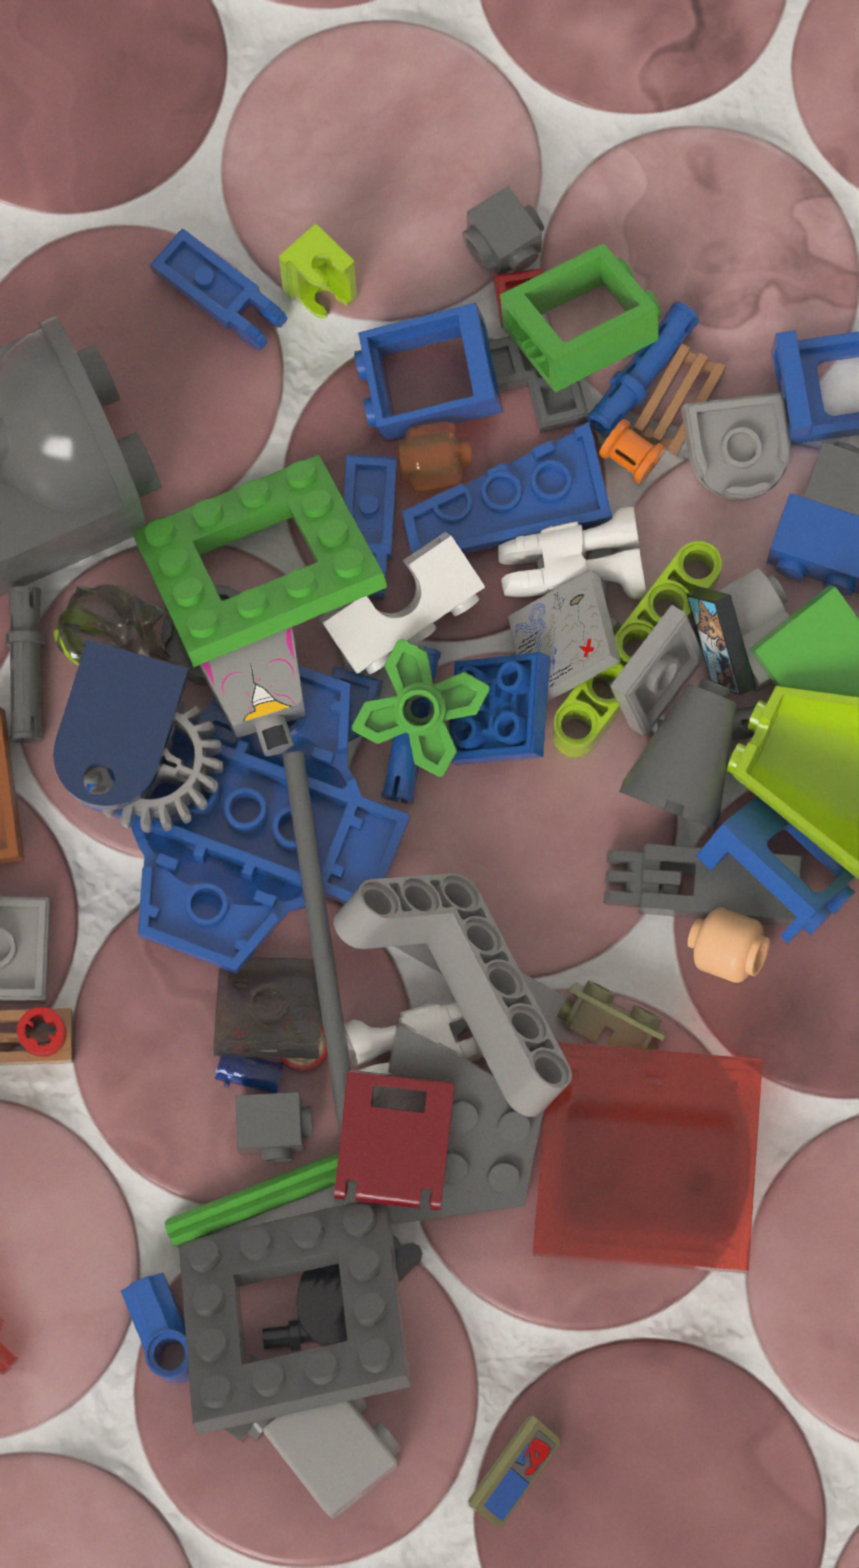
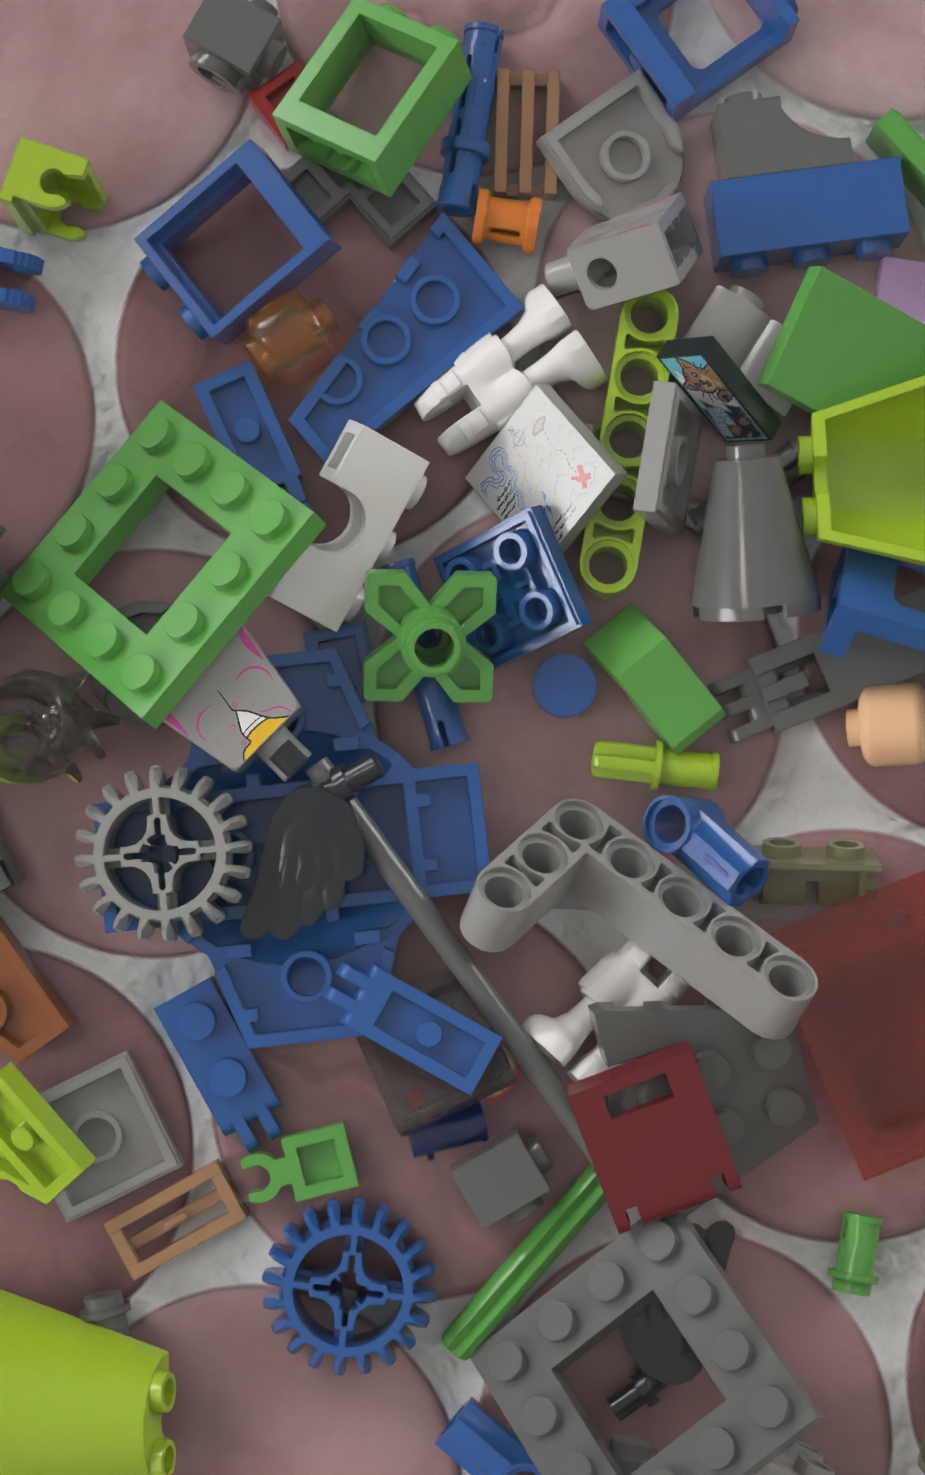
camera: 30 degrees left, 10 degrees up
(31, 1044) = (199, 1227): red bush -> none
(112, 941) = (221, 1063): none -> blue hinge
(117, 721) = (101, 834): dark blue tile -> none
(132, 1125) = (319, 1283): none -> blue gear
(139, 1046) = (313, 1162): none -> bright green plate
(255, 813) = (310, 852): none -> black animal
(266, 975) = (415, 1026): none -> blue hinge
(502, 799) = (564, 686): none -> blue tile
(502, 1316) = (856, 1254): none -> bright green pin
(538, 888) = (655, 765): none -> lime axle
(543, 956) = (706, 846): none -> blue piece
(570, 825) = (655, 678): none -> bright green slope
(705, 515) = (628, 255): none -> light grey torso

